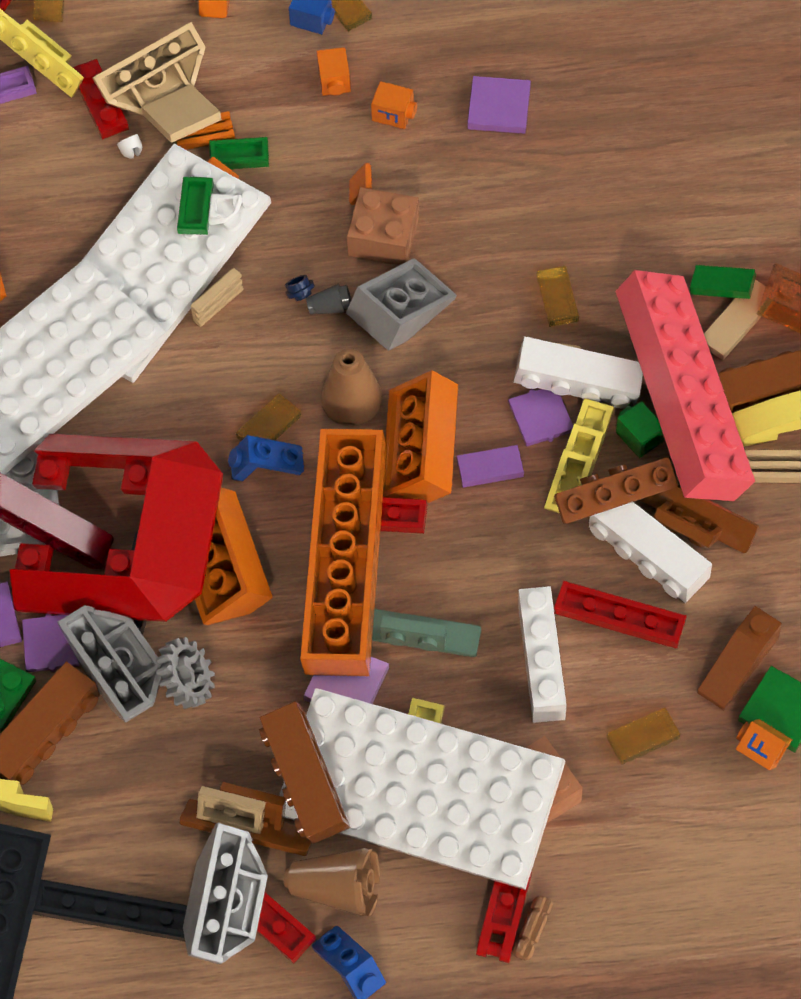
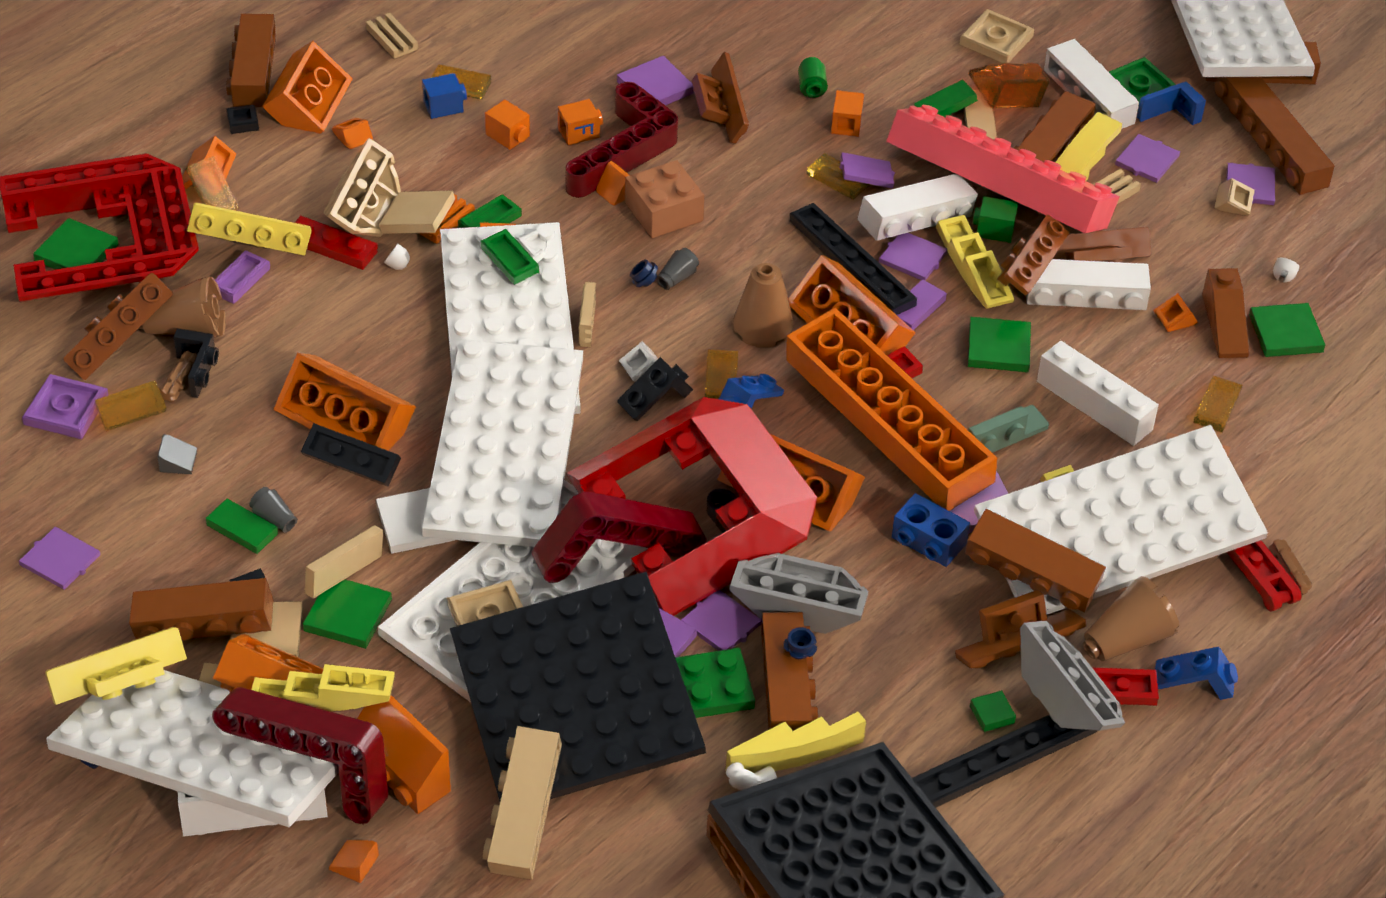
camera: 45 degrees left, 15 degrees down
(58, 702) = (804, 638): none -> dark blue plate
(164, 871) = (992, 711): none -> green tile
(185, 673) = (863, 561): light grey gear -> none
(200, 397) = (652, 387): none -> black bracket
(221, 370) = (638, 361): none -> white slope
(230, 805) = (1001, 621): tan tile -> none
(277, 681) = (930, 530): none -> blue brick
(399, 303) = (732, 242): light grey slope -> none
(409, 152) = (651, 133): none -> dark red beam
(480, 387) = (845, 250): none -> black tile
(519, 550) = (999, 344): none -> green tile
(529, 152) = (721, 99): none -> dark orange bracket
(581, 307) = (867, 170): none -> medium lavender piece
(620, 614) = (1123, 335): red plate -> none
(621, 236) = (847, 113): none -> orange panel
(632, 183) = (812, 77): none -> green brick
(703, 626) = (1175, 314): none -> orange slope
(762, 743) = (1305, 352): orange brick -> none

